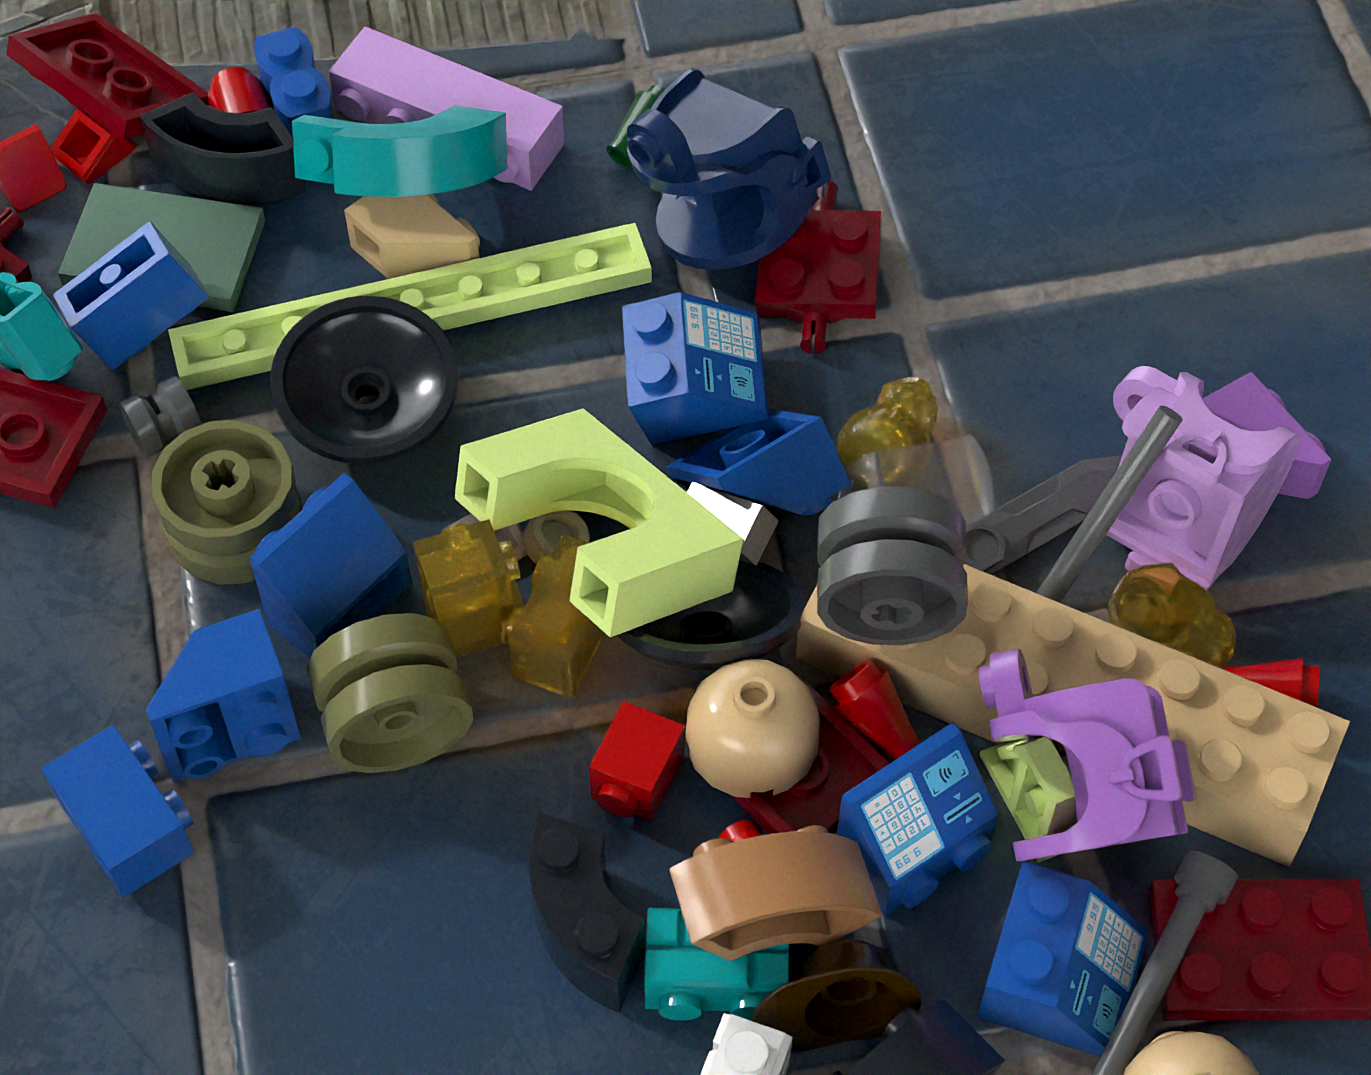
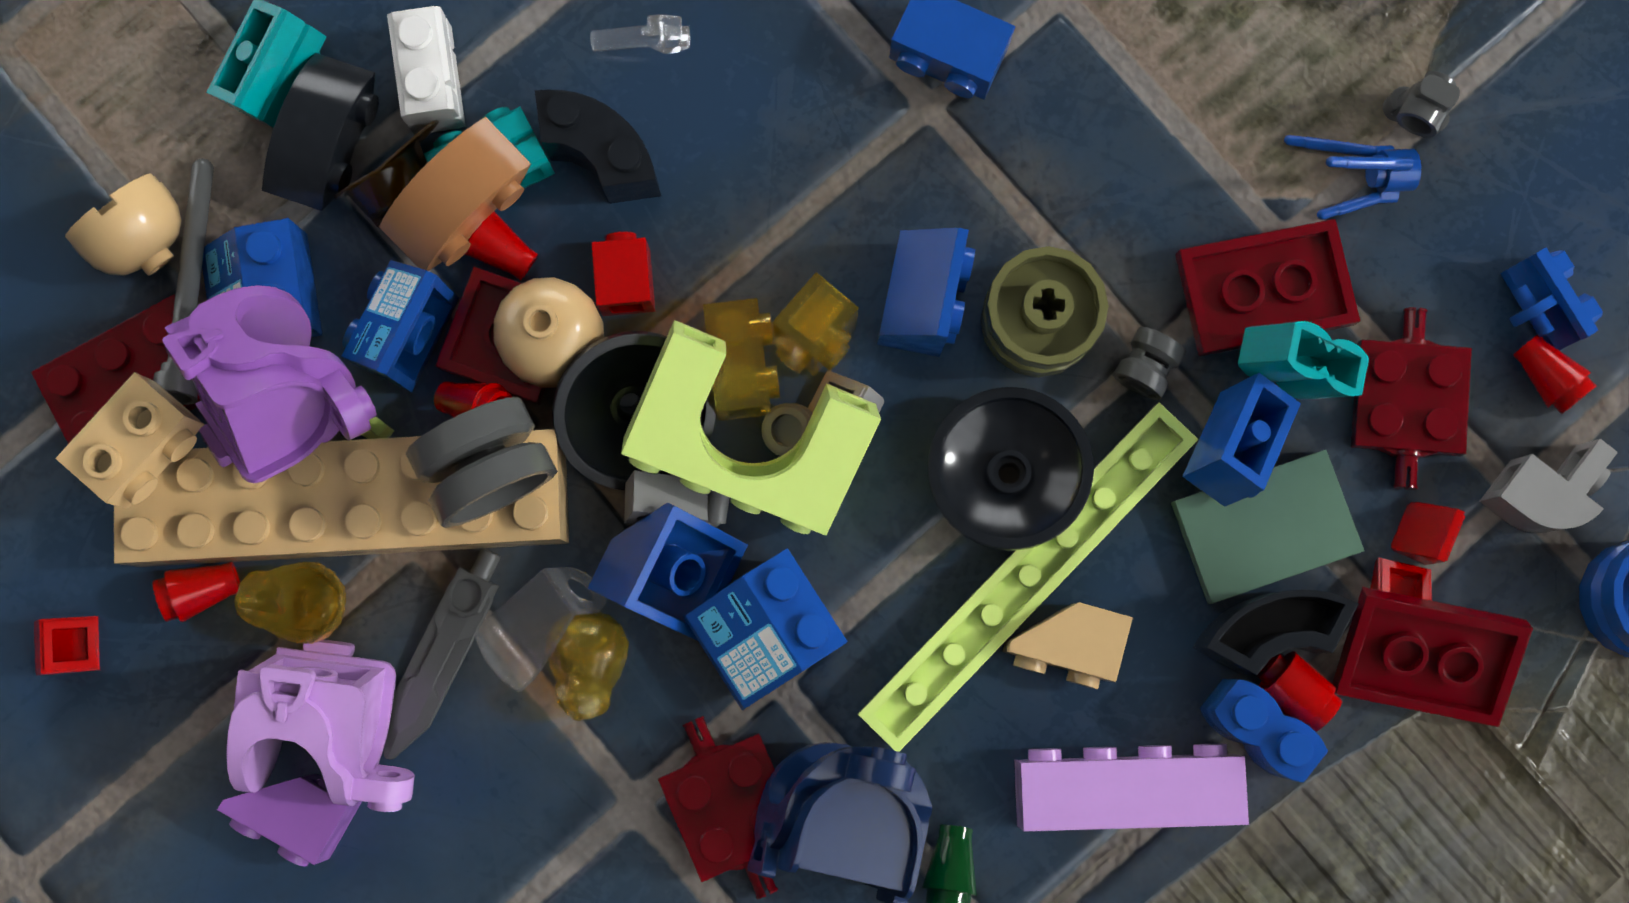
camera: 150 degrees right, 25 degrees up
(222, 700) = (928, 153): blue slope -> none
(389, 693) = (815, 212): olive wheel -> none
(402, 159) = (1101, 678): teal arch -> none
(432, 1004) = (660, 33): none -> clear bar
(1110, 503) = (357, 630): dark grey bar -> none
(1274, 797) = (131, 442): none -> tan brick

